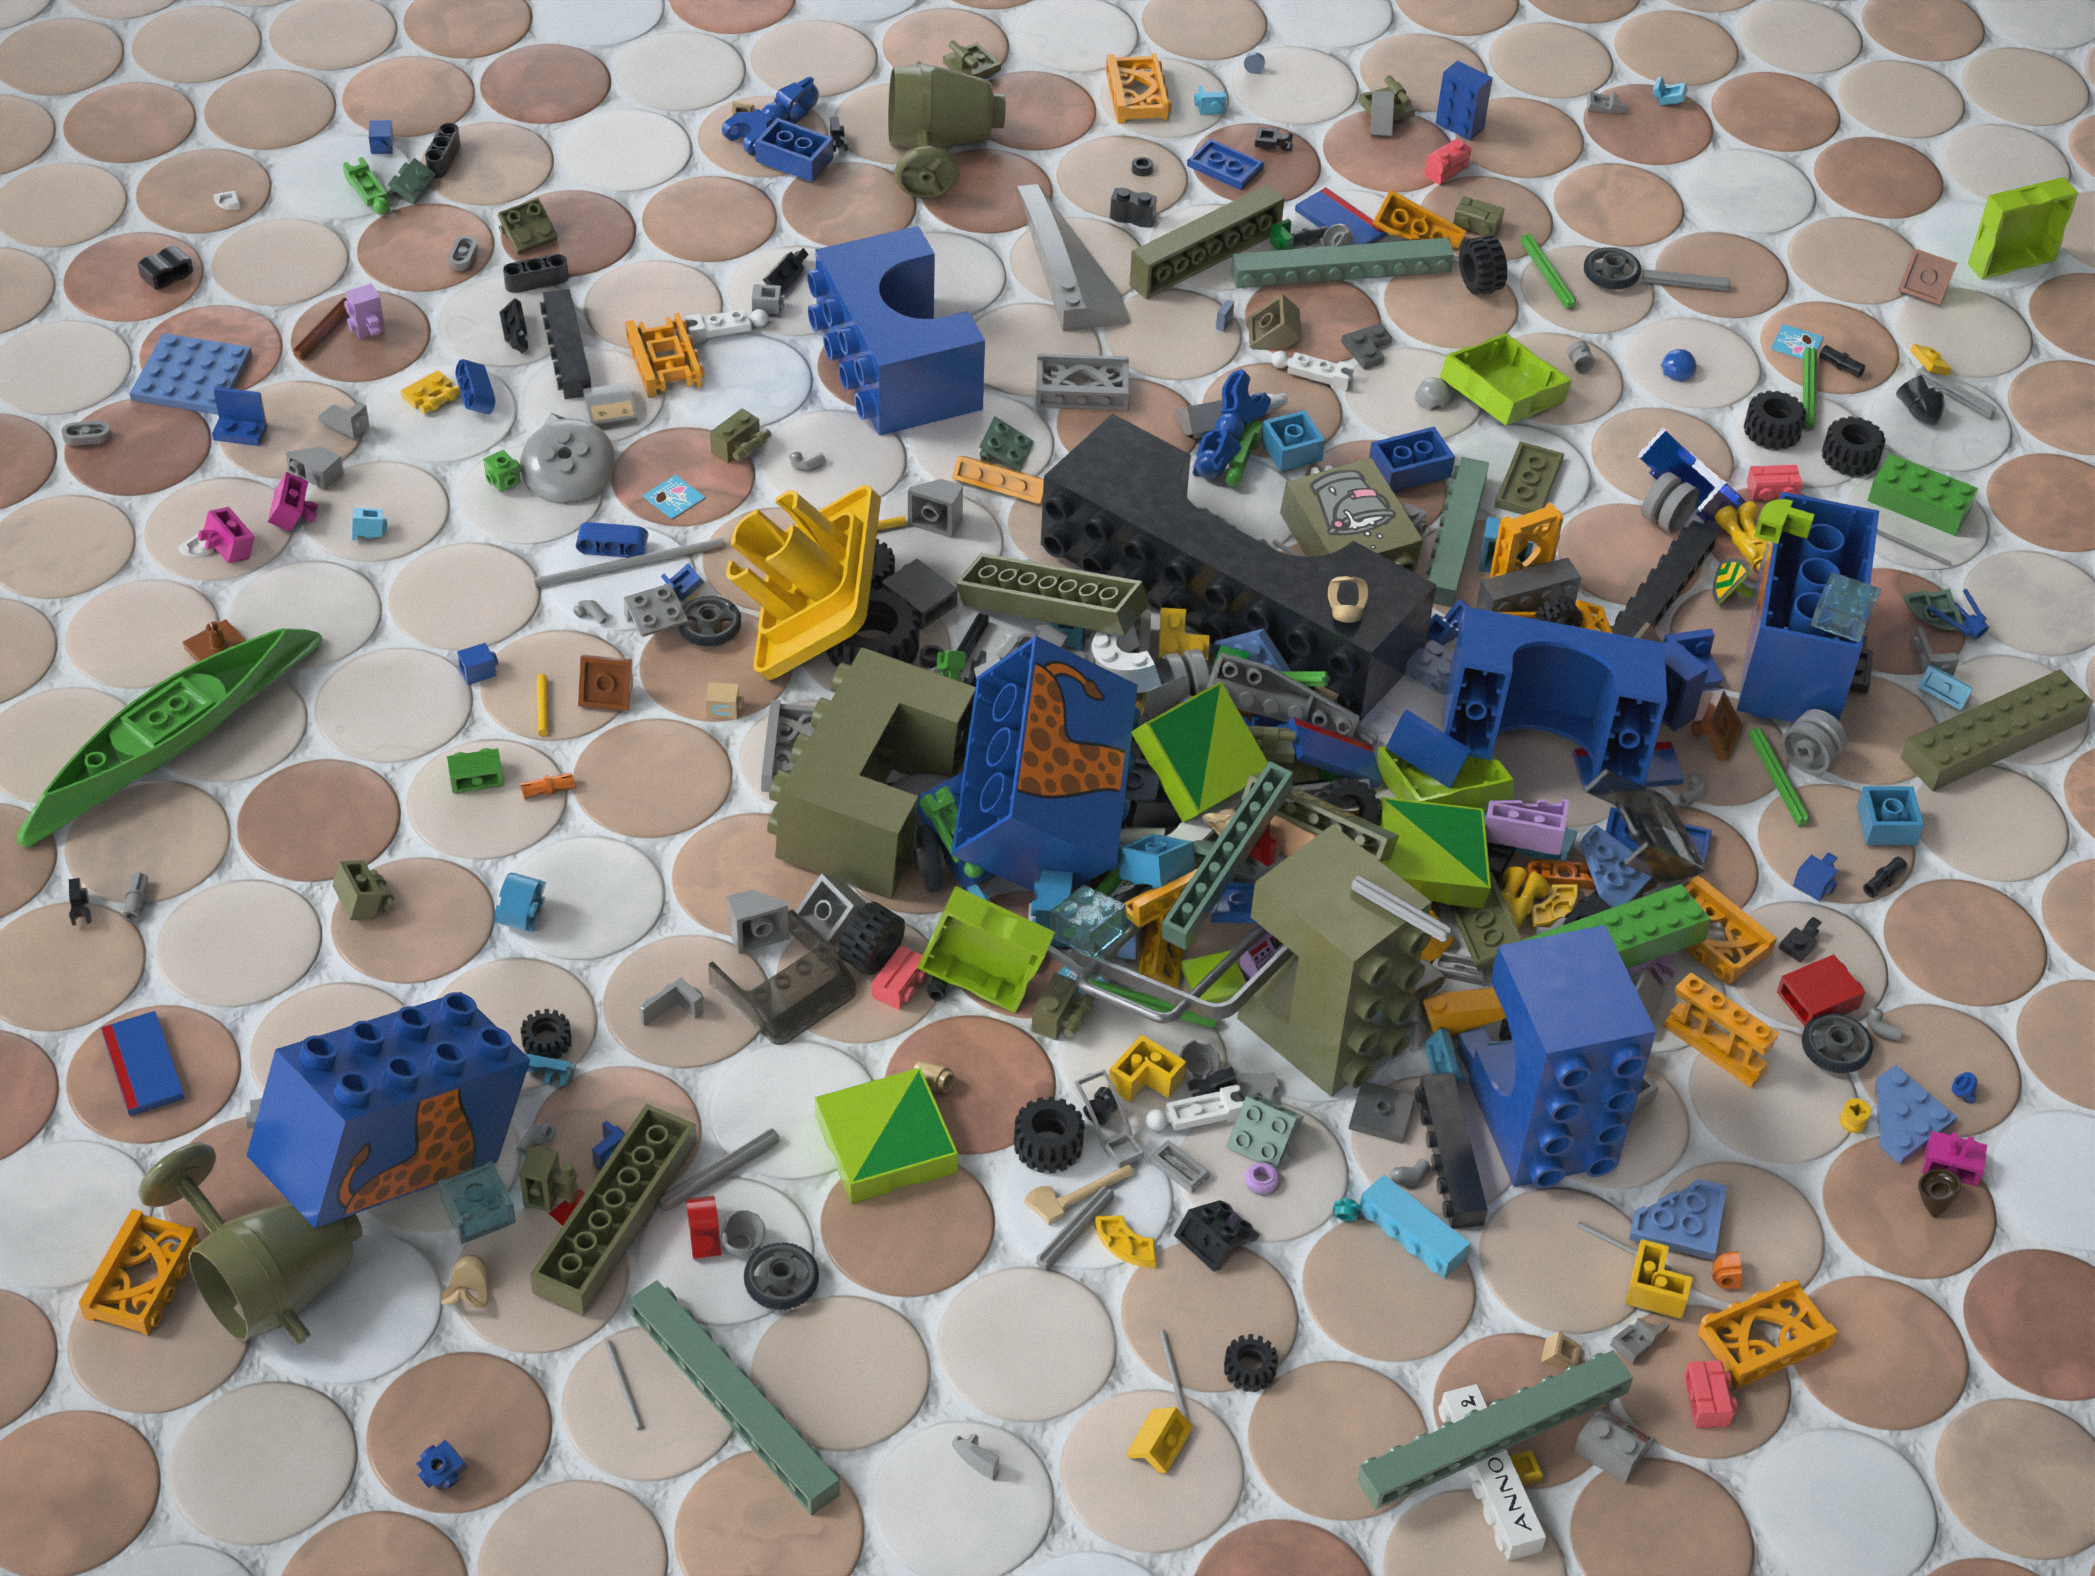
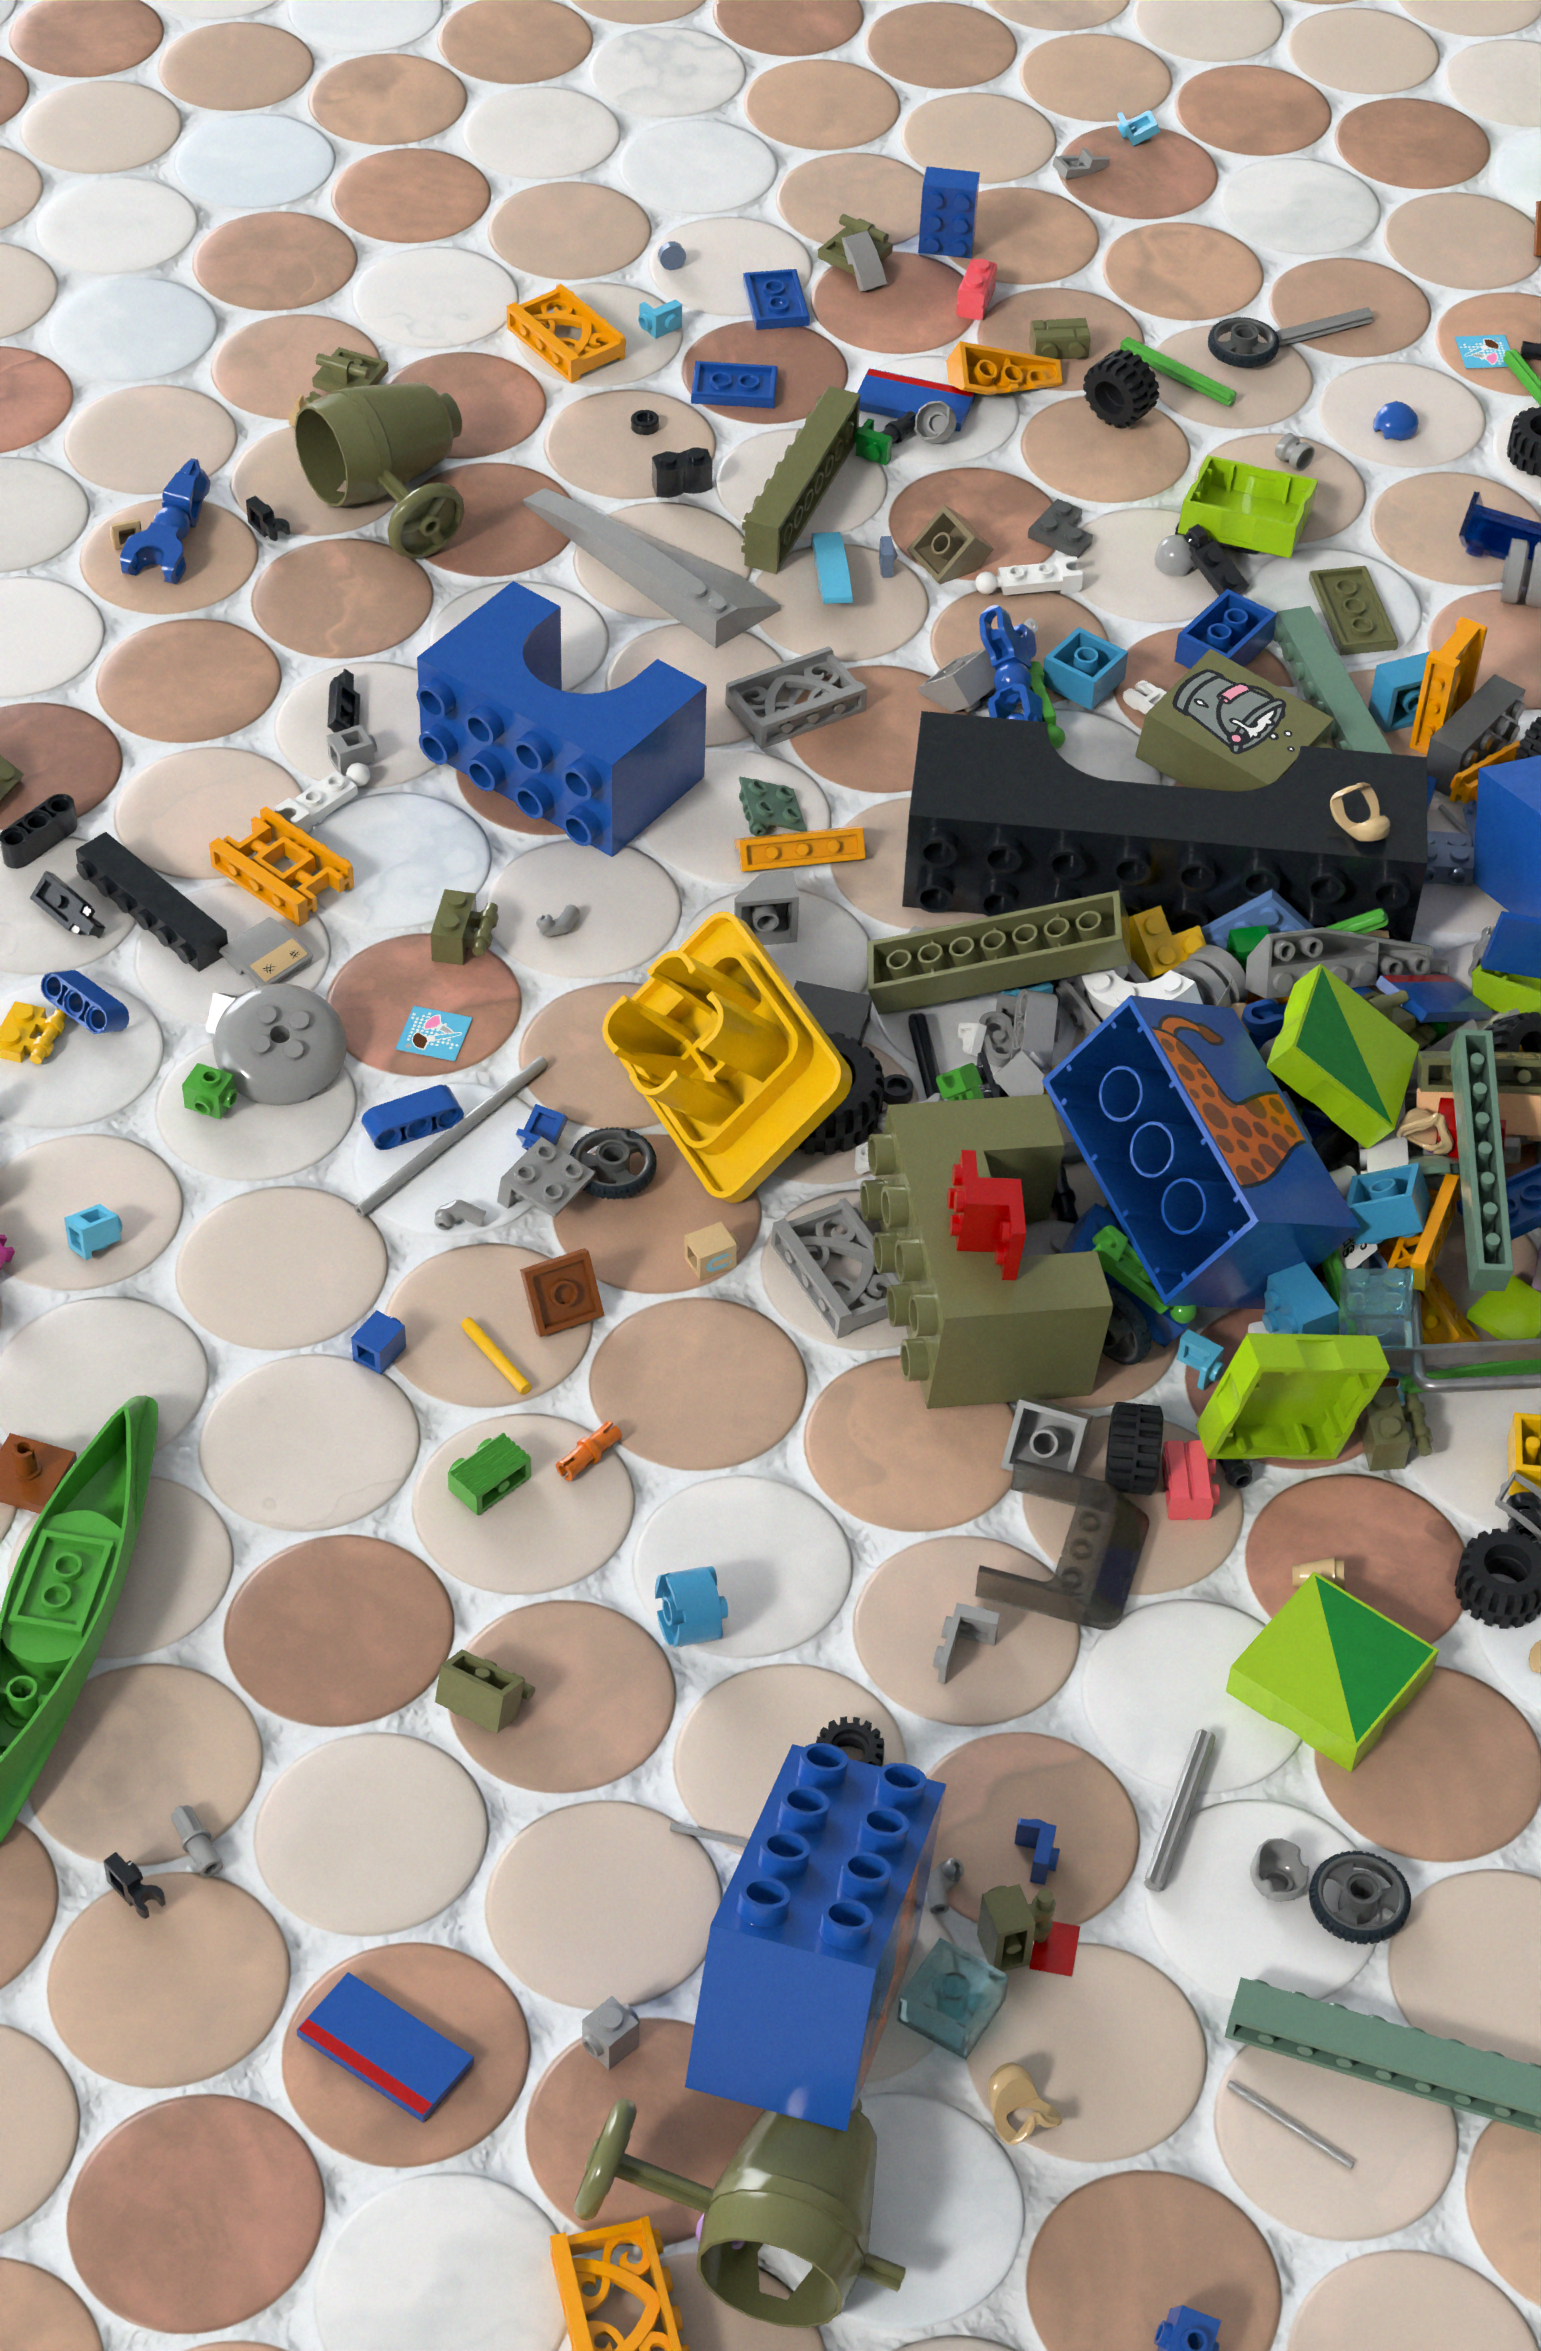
camera: 30 degrees left, 0 degrees up
(613, 1209) = (1116, 1921): olive brick -> none
(703, 1227) = (1230, 1878): red brick -> none
(756, 920) = (981, 1492): light grey slope -> none
(794, 149) = (233, 555): blue brick -> none
(850, 737) = (987, 1214): none -> red bracket
(1179, 308) = (831, 568): none -> medium azure slope
(1271, 138) = (762, 336): black plate -> none
(1305, 117) = (776, 299): none -> blue tile
(1342, 262) = (959, 447): sand green brick -> none
(1450, 409) = (1214, 562): none -> black hinge

